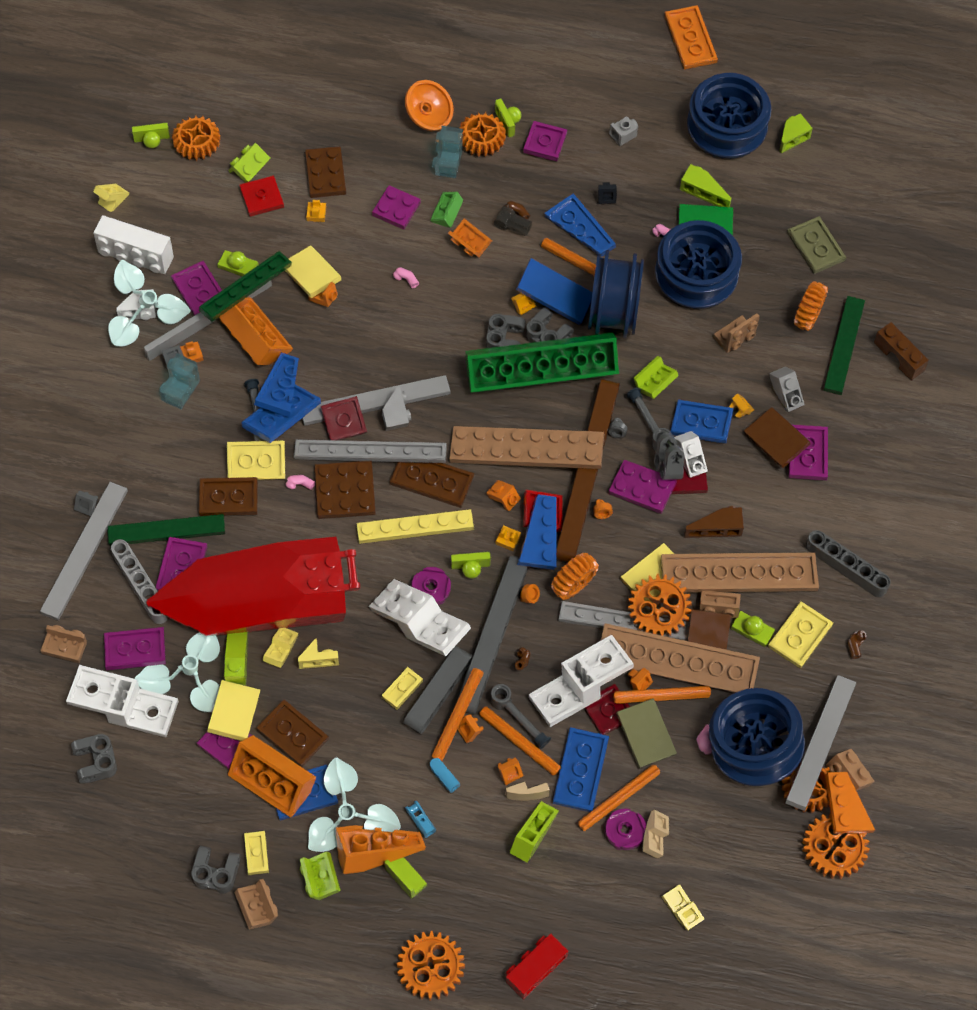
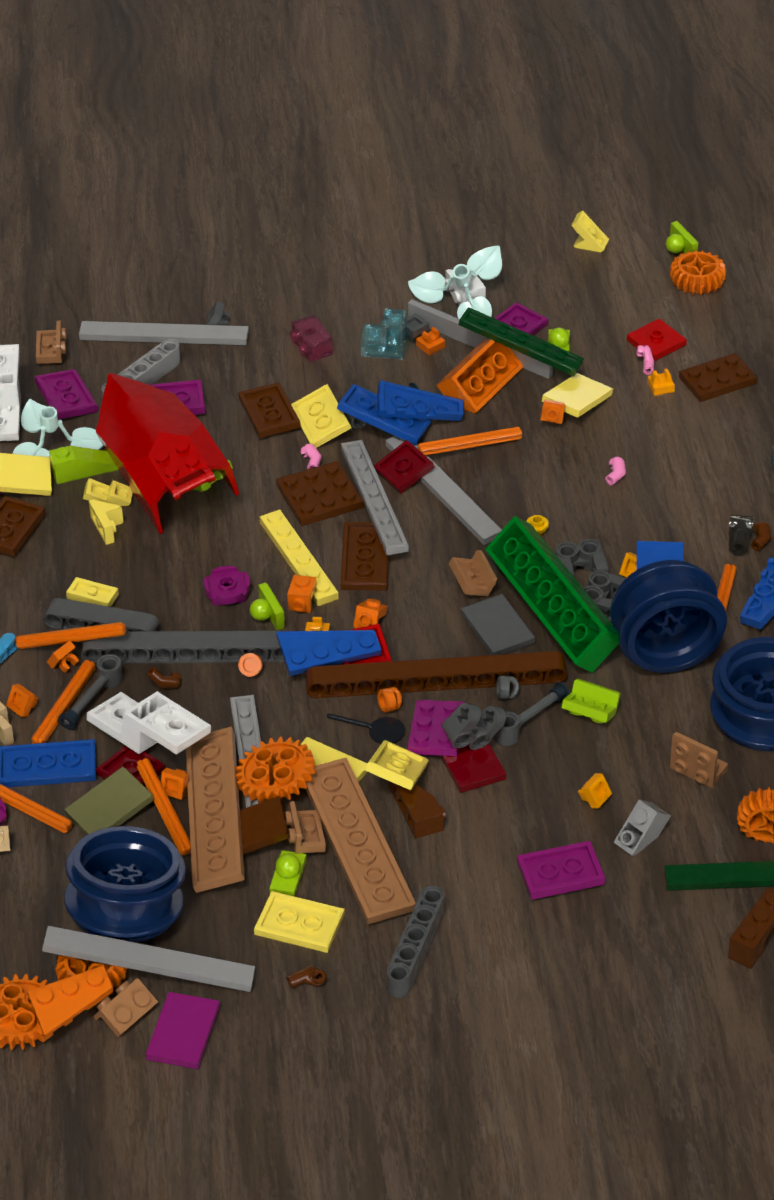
camera: 75 degrees right, 20 degrees down
(133, 244) = (530, 260): white brick -> none
(159, 434) = (311, 338): none -> clear pink brick
(164, 529) = (212, 381): dark green tile -> none
(249, 163) = (691, 317): lime bracket -> none
(280, 208) = (648, 361): none -> bright pink arm
(333, 346) = (470, 441): none -> orange axle
(394, 411) = (432, 498): light grey slope -> none
(396, 207) = (705, 441): magenta plate -> none
(420, 617) = (178, 577): white bracket -> none
(446, 354) = (539, 523): none -> yellow plate
(447, 209) = (727, 481): bright green slope -> none
(466, 533) = (301, 593): none -> orange bracket
(470, 237) = (693, 504): orange bracket -> none
(489, 409) = (474, 574): none -> medium nougat bracket
(527, 447) = (438, 614): medium nougat plate -> none
(547, 412) = (497, 625): none -> dark grey tile
(574, 576) = (282, 687): orange gear -> none
(625, 522) = (380, 730): none -> black piece
(685, 522) = (397, 764): none -> light yellow tile
(694, 458) = (497, 752): white slope -> none
(704, 420) = (554, 761): blue tile -> none
(777, 437) = (563, 831): reddish brown tile -> none
(880, 739) = (183, 1030): none -> magenta tile

